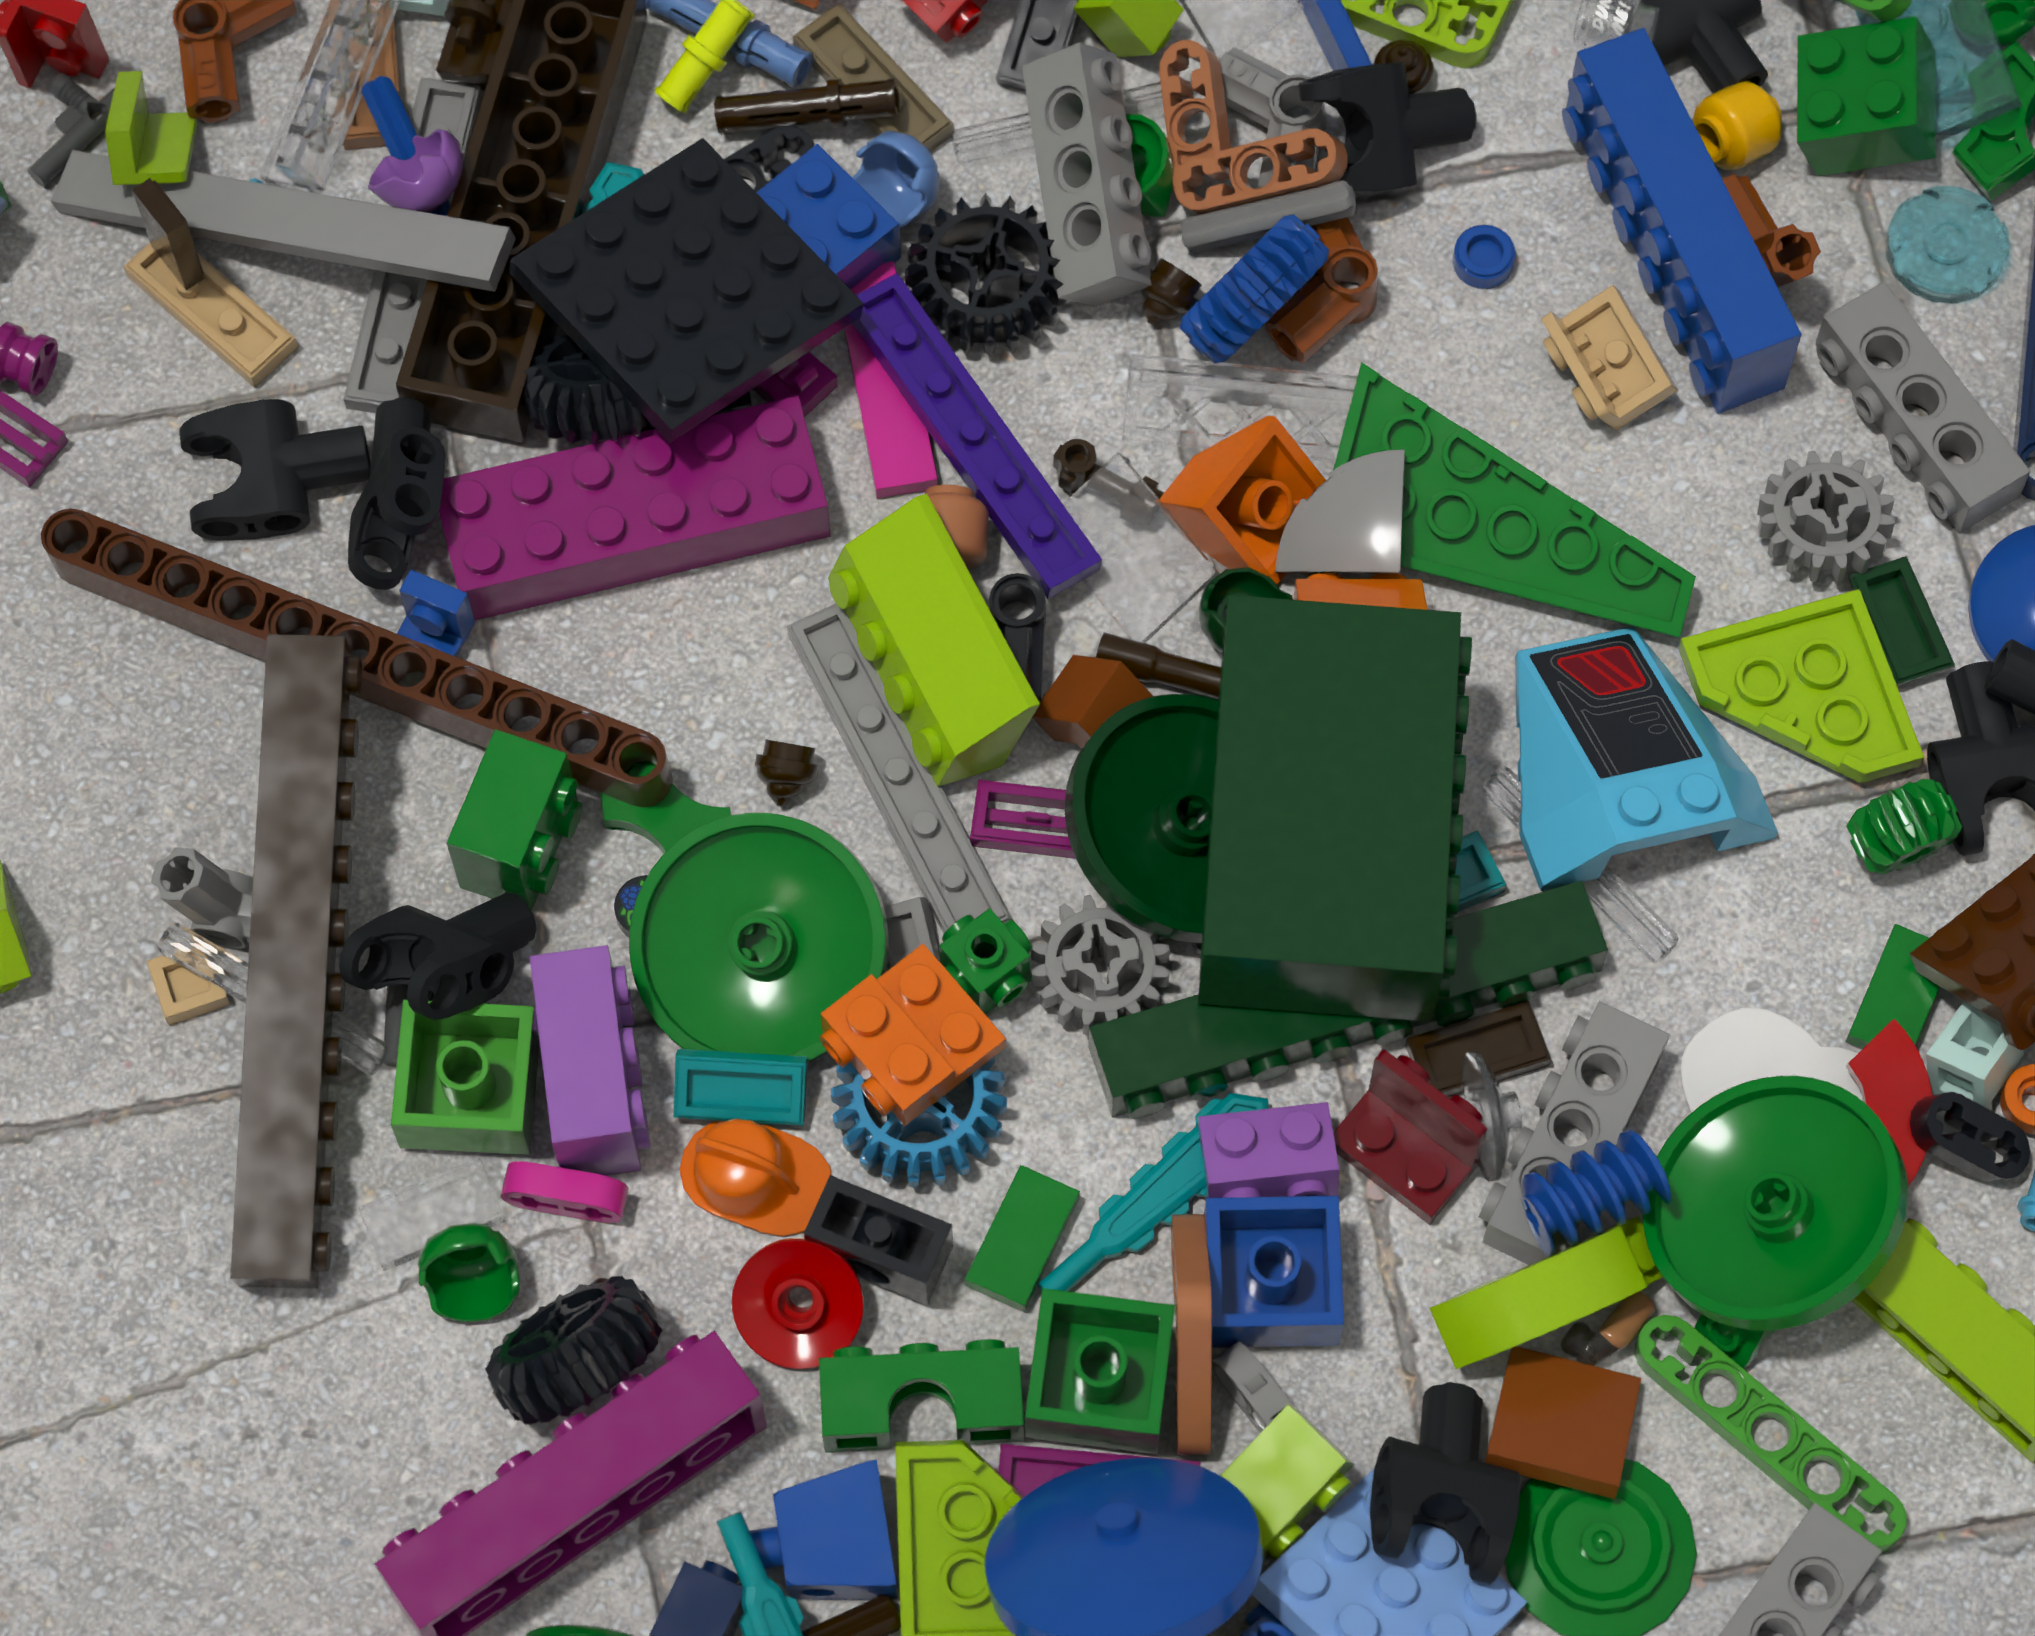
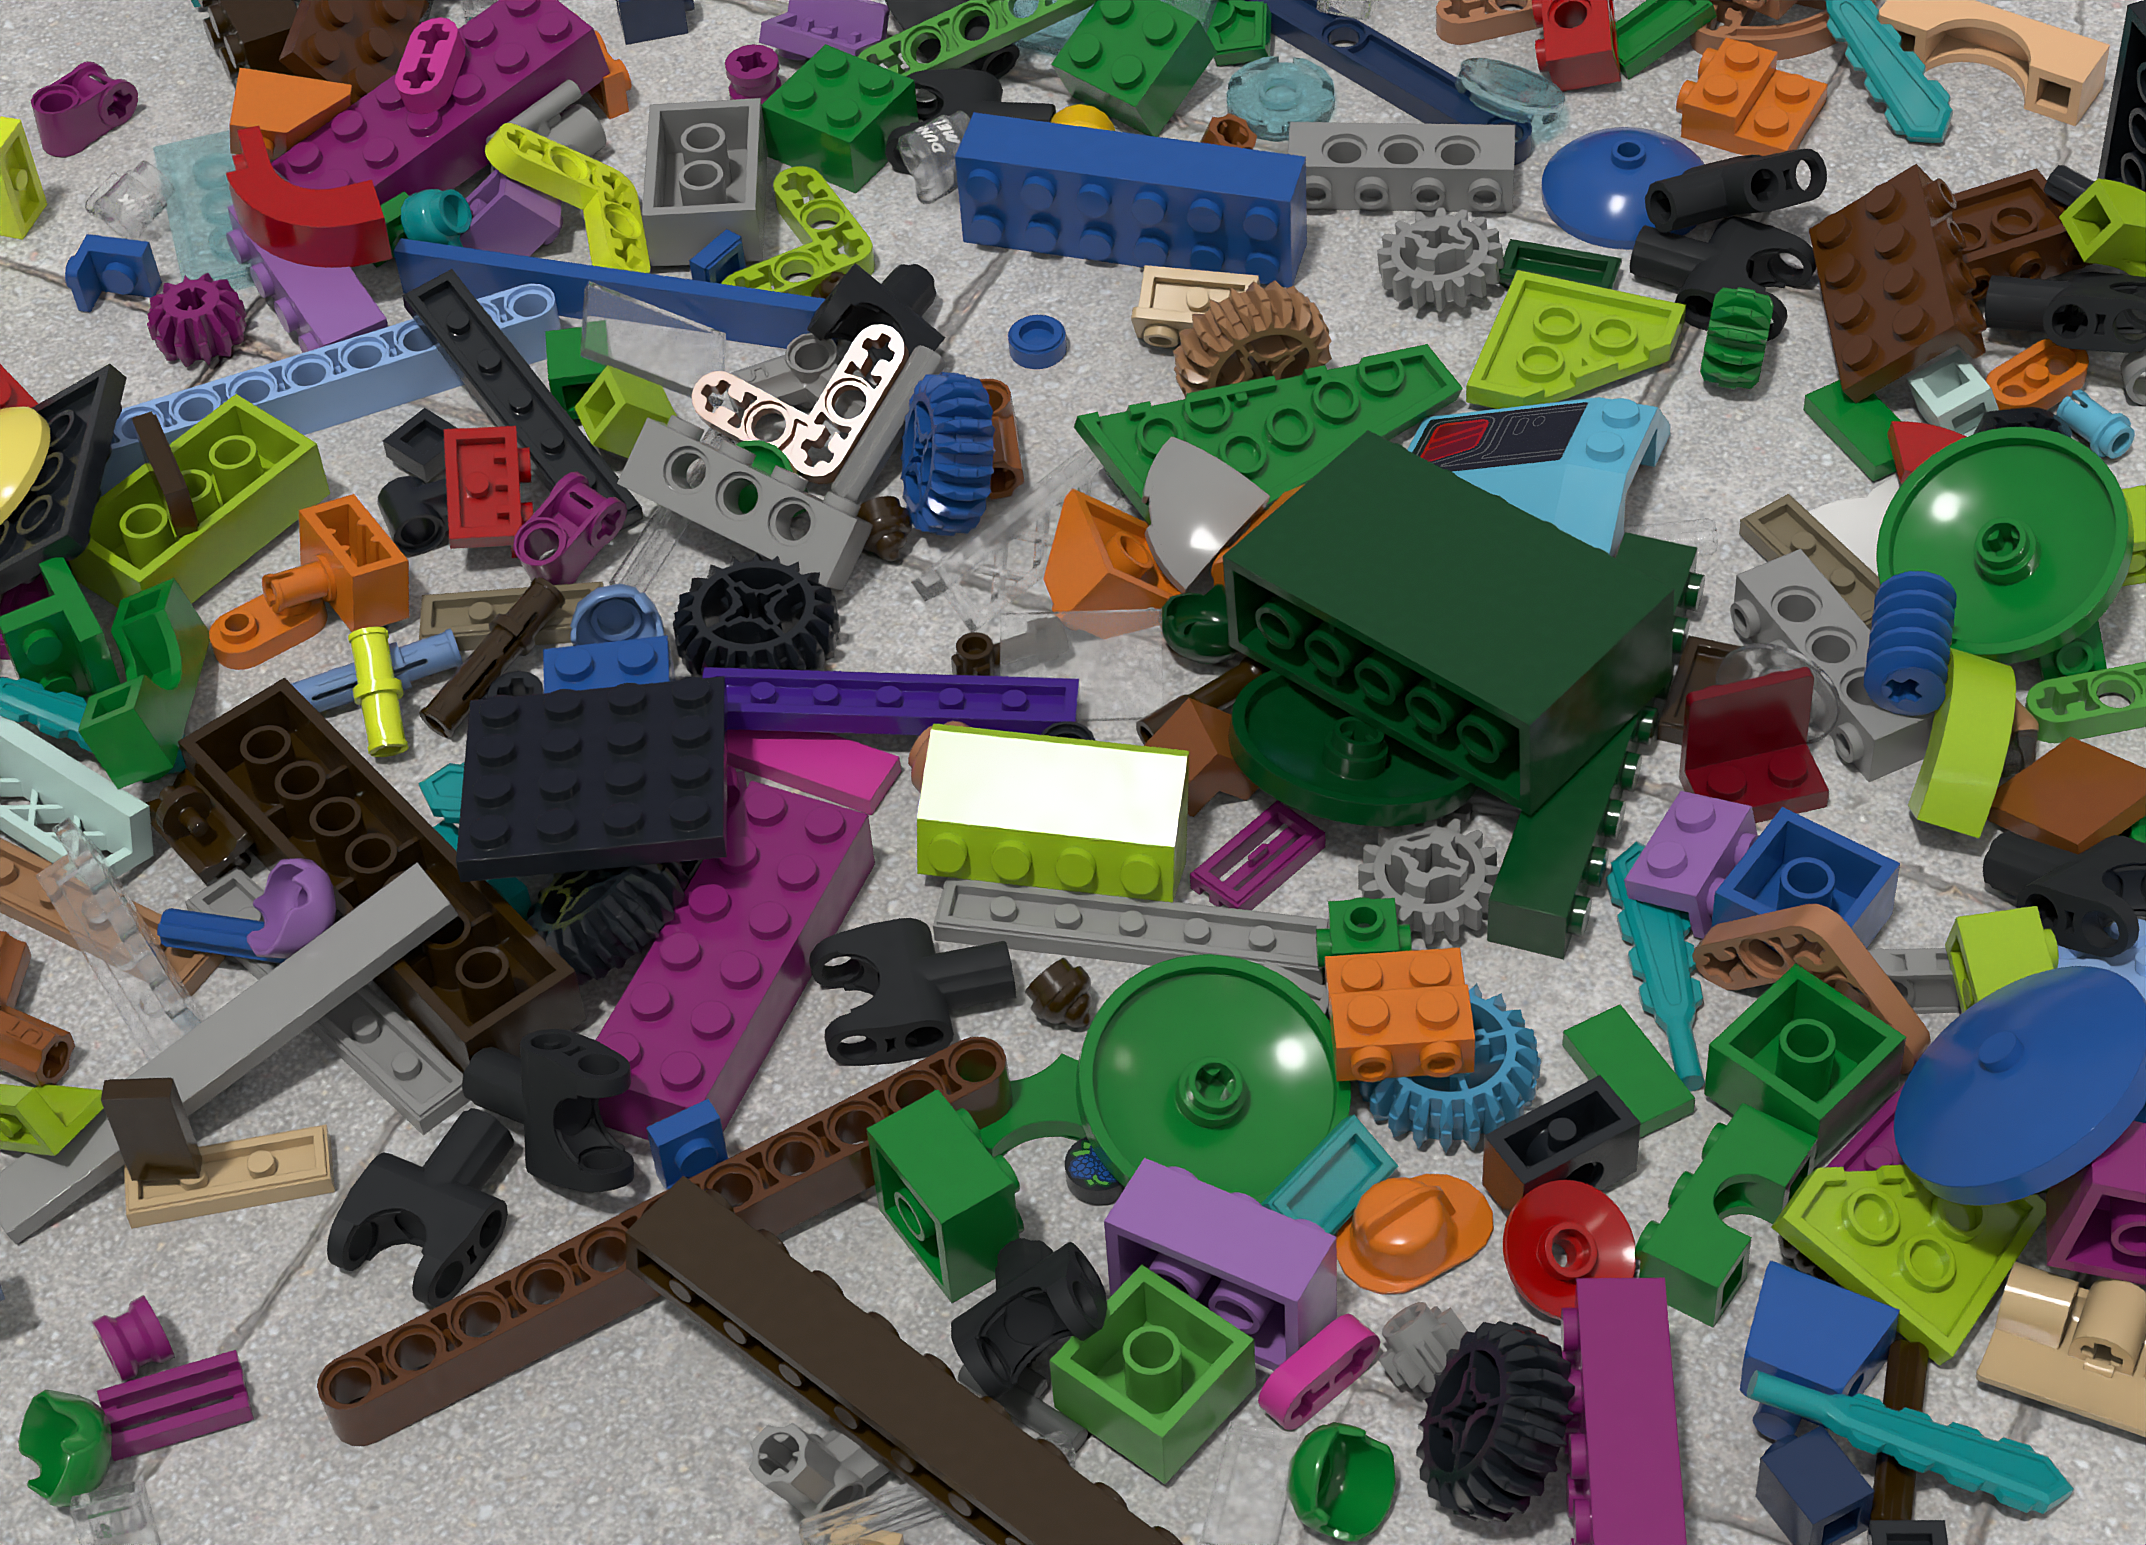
camera: 50 degrees left, 20 degrees down
(634, 1250) = (1419, 1344): none -> light grey gear
(711, 654) = (908, 987): none -> black connector
(980, 60) = (571, 528): none -> magenta piece
(1567, 441) = (1252, 338): none -> medium nougat gear
(1697, 1049) = (1790, 527): none -> dark tan tile

